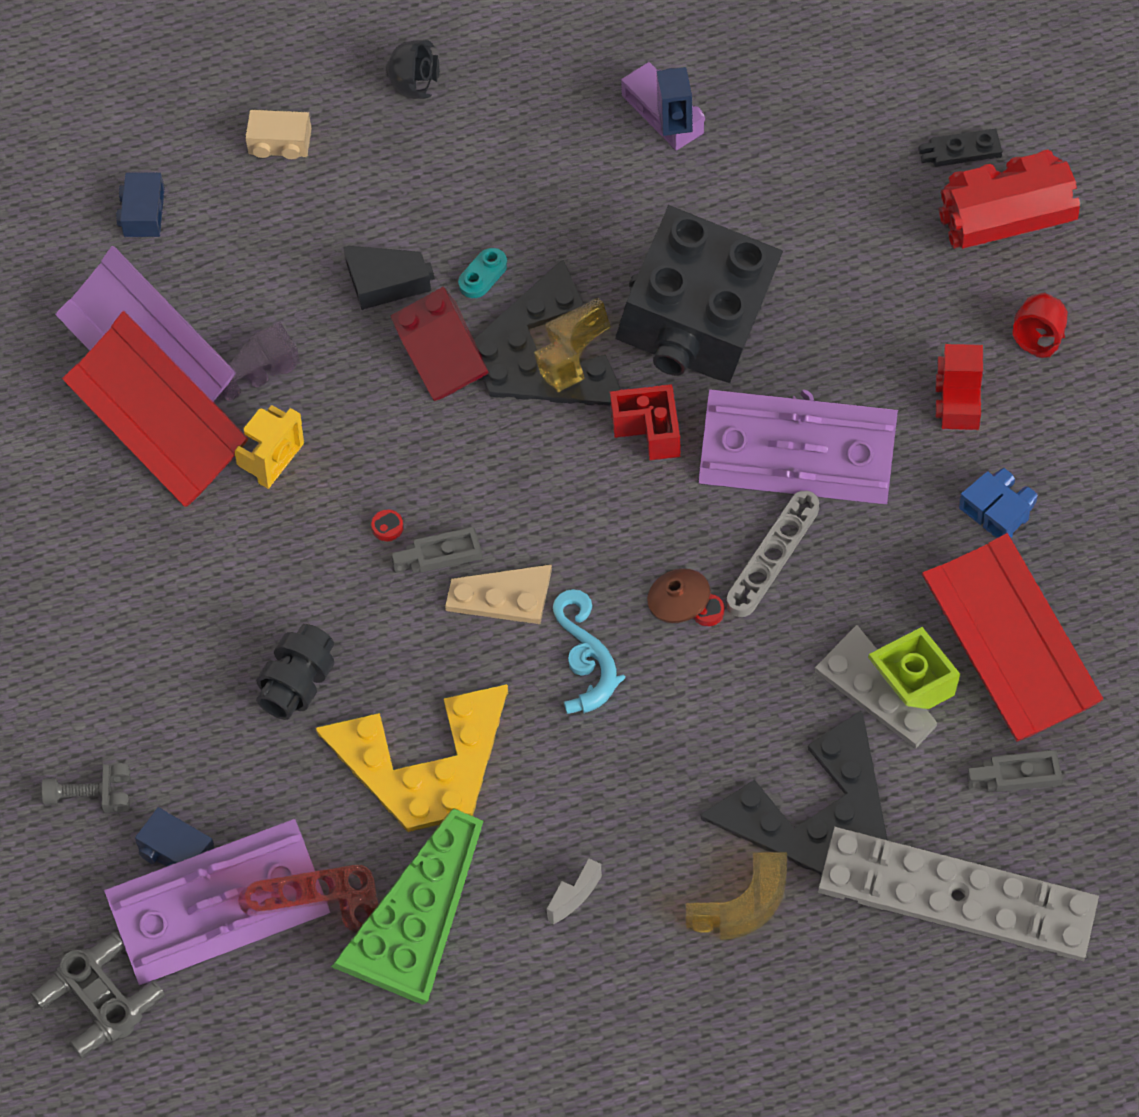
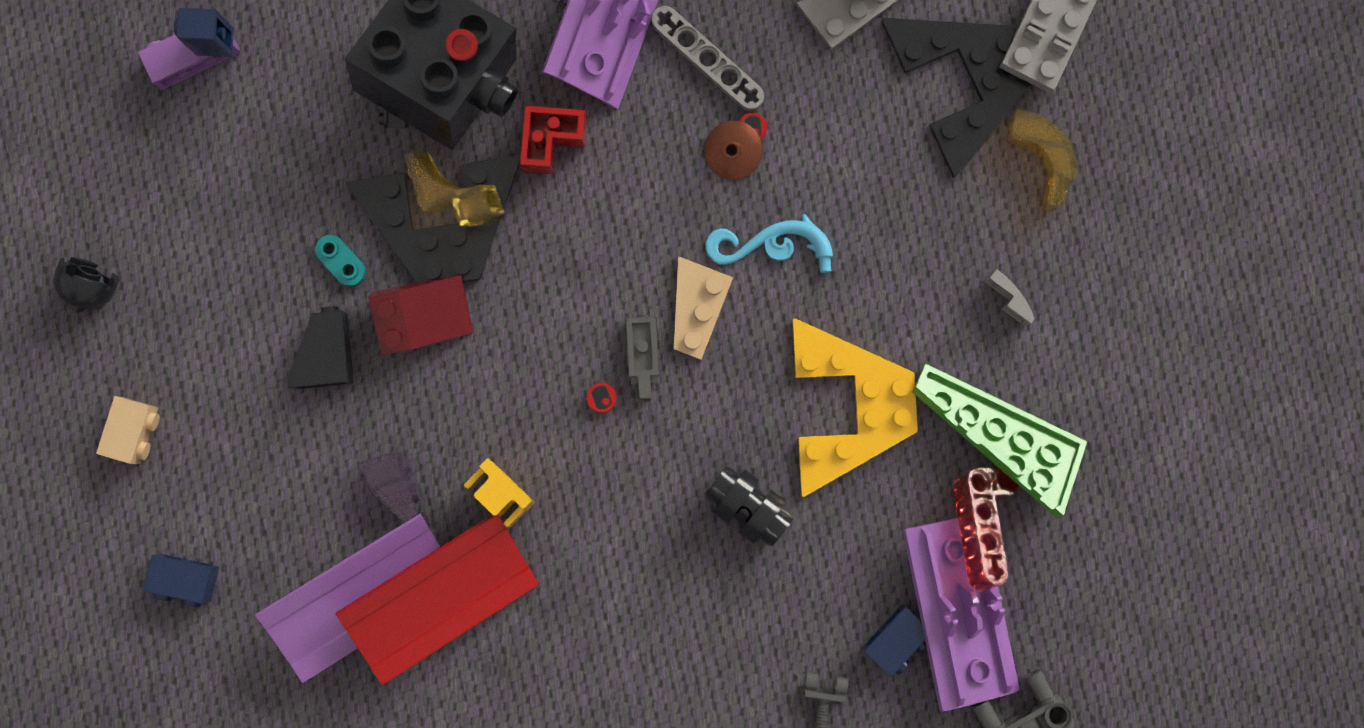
camera: 85 degrees left, 25 degrees up
(704, 294) = (461, 44): none -> red tile

